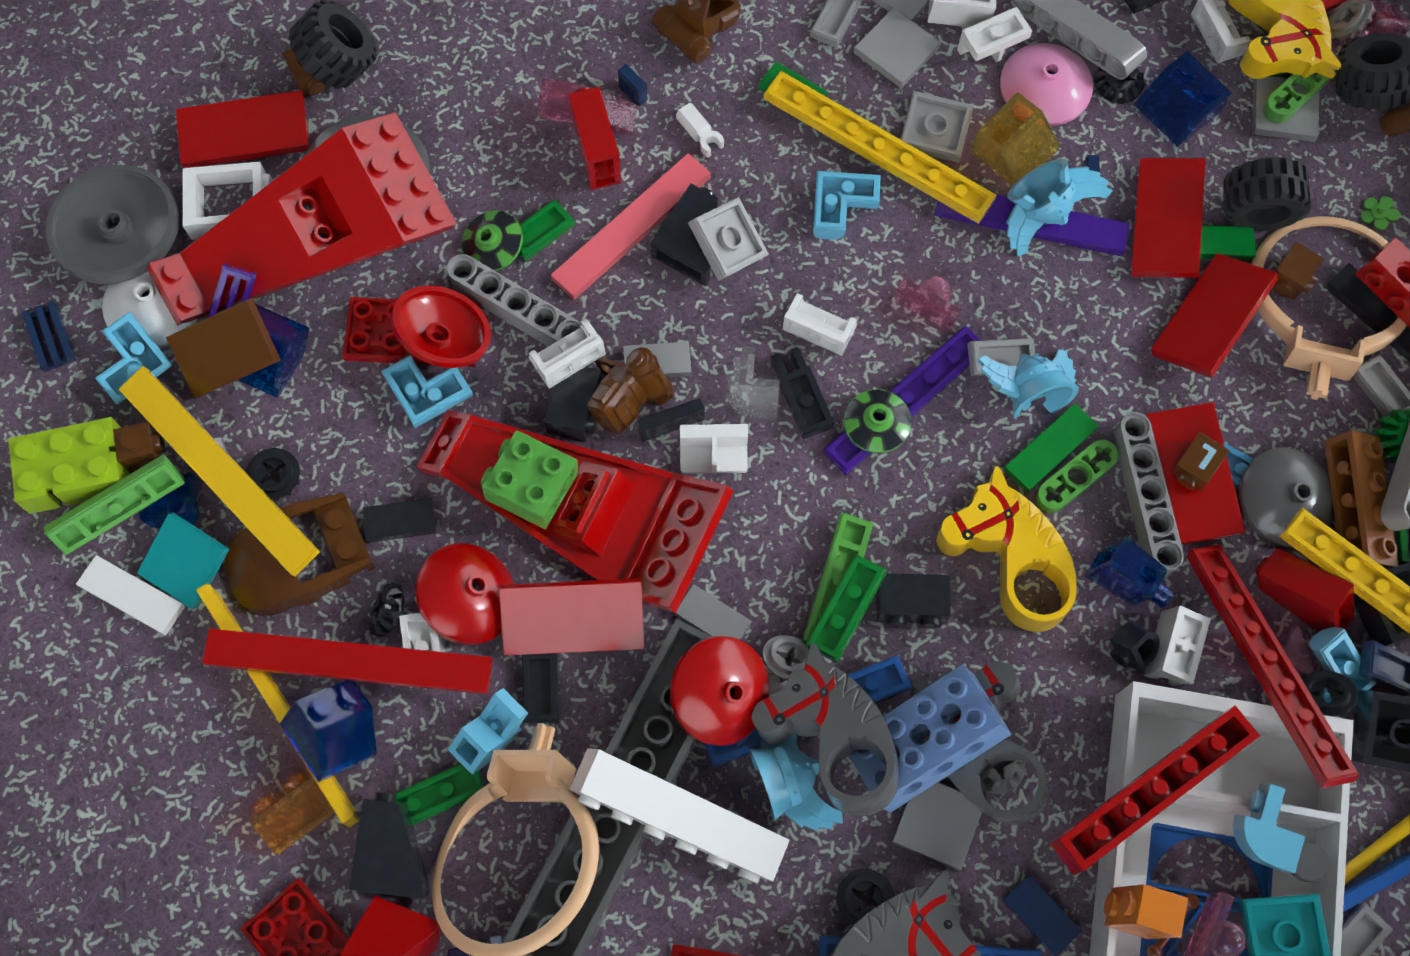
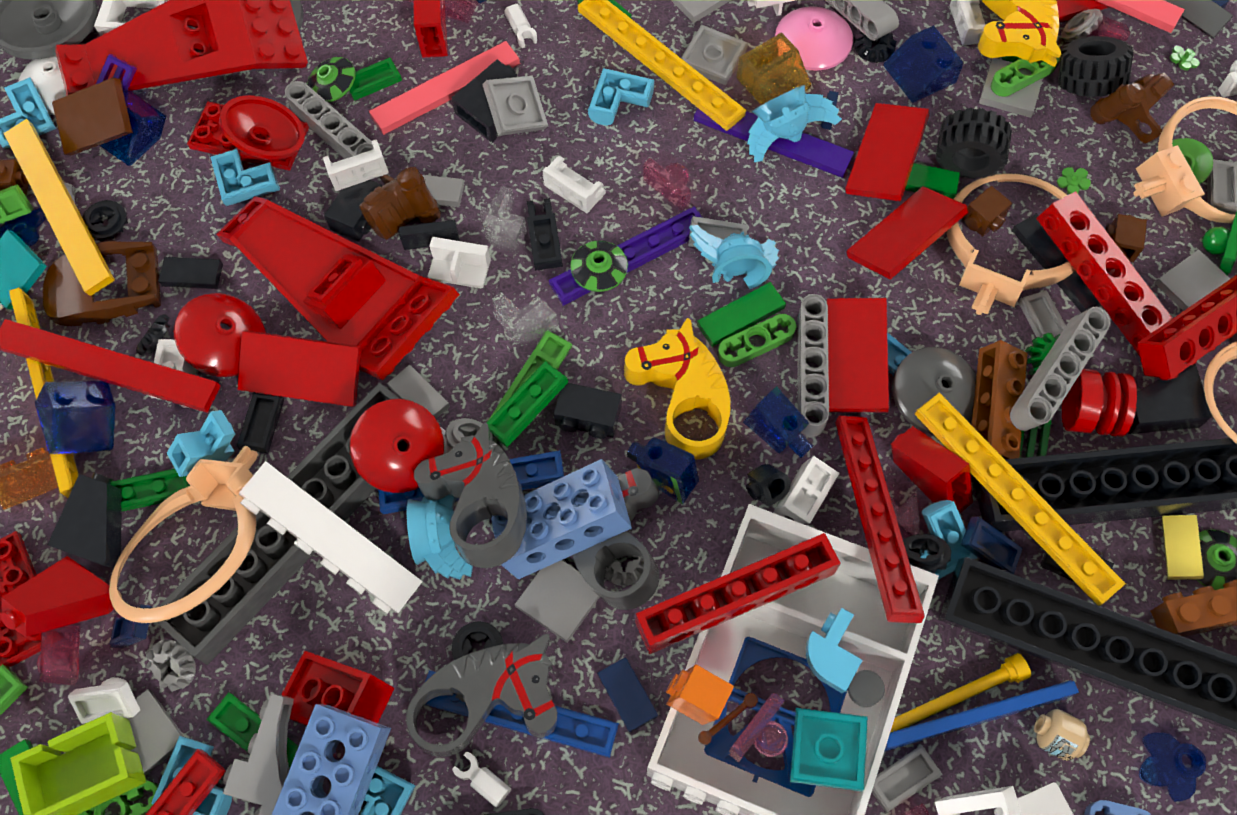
camera: 15 degrees right, 5 degrees down
(529, 479) = (295, 254): bright green brick -> none
(814, 511) = (527, 324): none -> clear brick
(1030, 652) = (668, 466): none -> clear blue torso
(1200, 462) = (860, 342): reddish brown brick -> none

